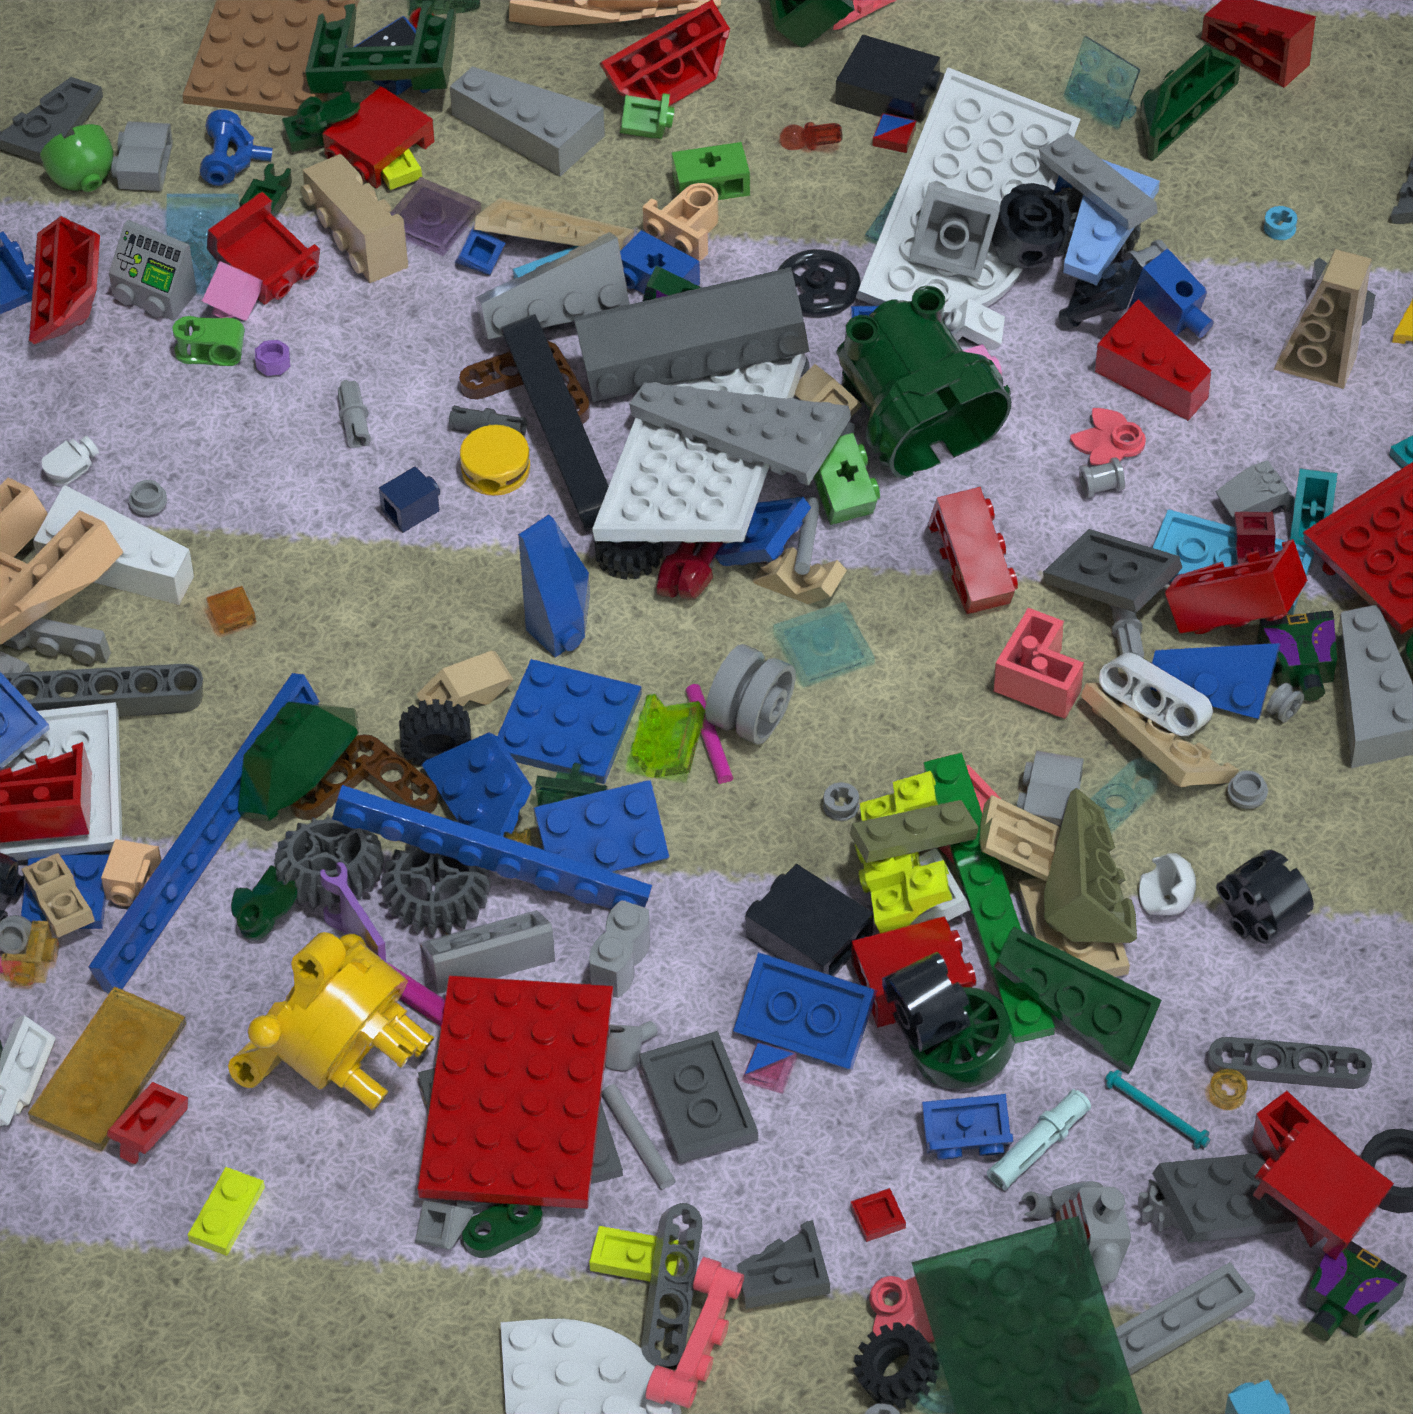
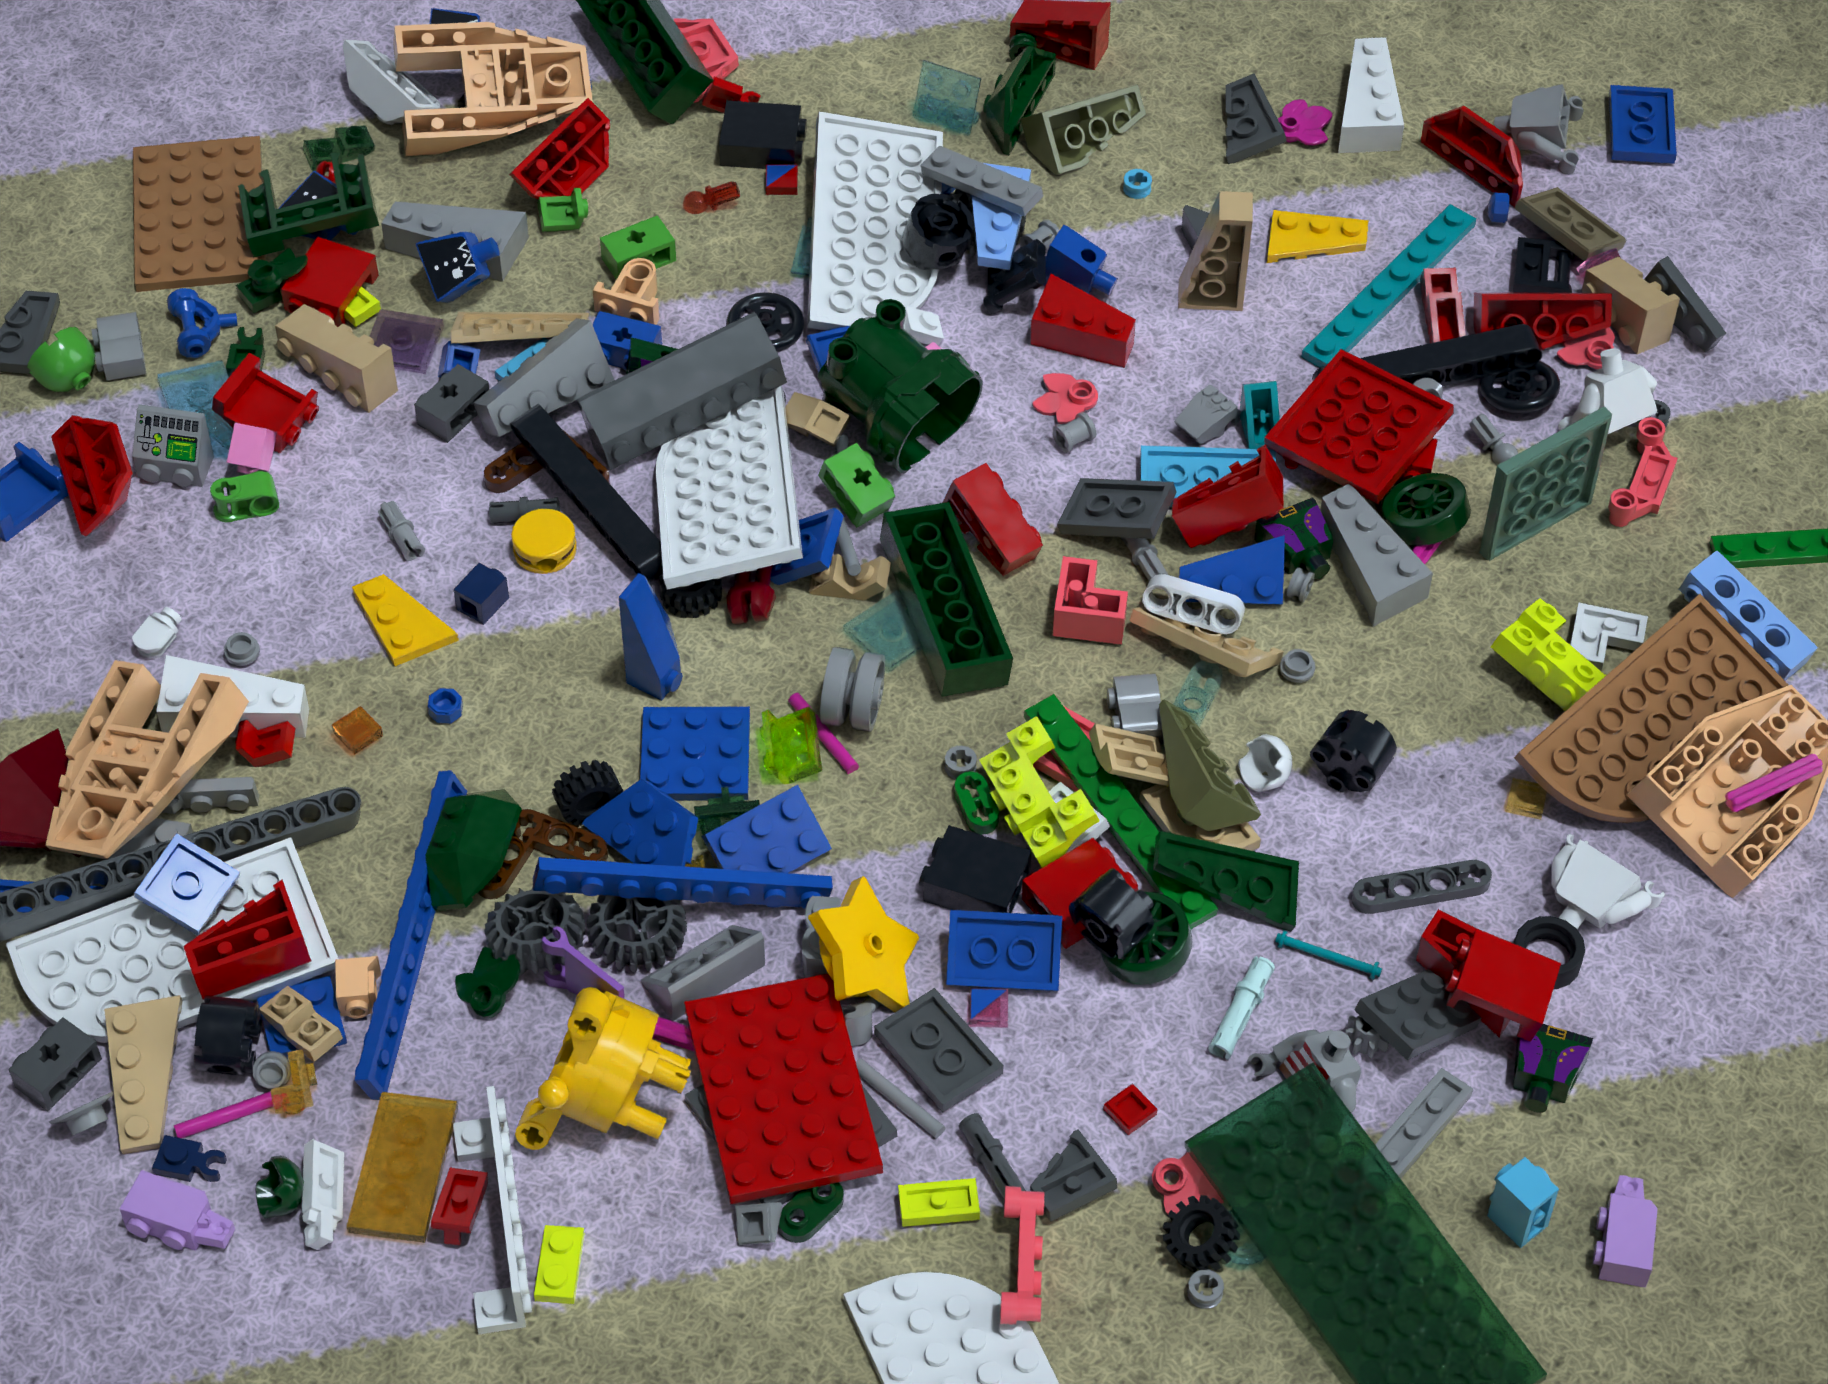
camera: 20 degrees left, 0 degrees up
(132, 602) = (266, 744): none -> red bracket
(198, 1064) = (484, 1139): none -> white bracket
(272, 357) = (307, 498): medium lavender tile -> none
(319, 508) = (401, 621): none -> yellow wing
(329, 607) = (445, 705): none -> blue tile
(450, 293) = (450, 403): none -> dark grey brick
(473, 679) = (599, 738): tan slope -> none
(509, 146) = (456, 263): none -> torso
(655, 969) = (864, 948): none -> yellow plate
(665, 1284) = (988, 1219): dark grey beam -> none
(713, 1216) = (976, 1133): none -> dark grey pin
(754, 428) = (766, 457): light grey wing -> none
(832, 849) = (982, 800): none -> green beam
(866, 23) = (723, 90): none -> red plate
(888, 623) = (946, 599): none -> dark green brick
(913, 831) = (1044, 771): olive plate -> none
(954, 230) = (875, 249): light grey slope -> none
(966, 1125) = (1177, 1011): blue bracket -> none
(1212, 38) = (1018, 41): none -> dark green bush
(1226, 151) = (1072, 132): none -> olive wedge
(1236, 1082) = (1382, 913): clear yellow bush -> none
(1253, 533) = (1222, 450): dark red slope -> none

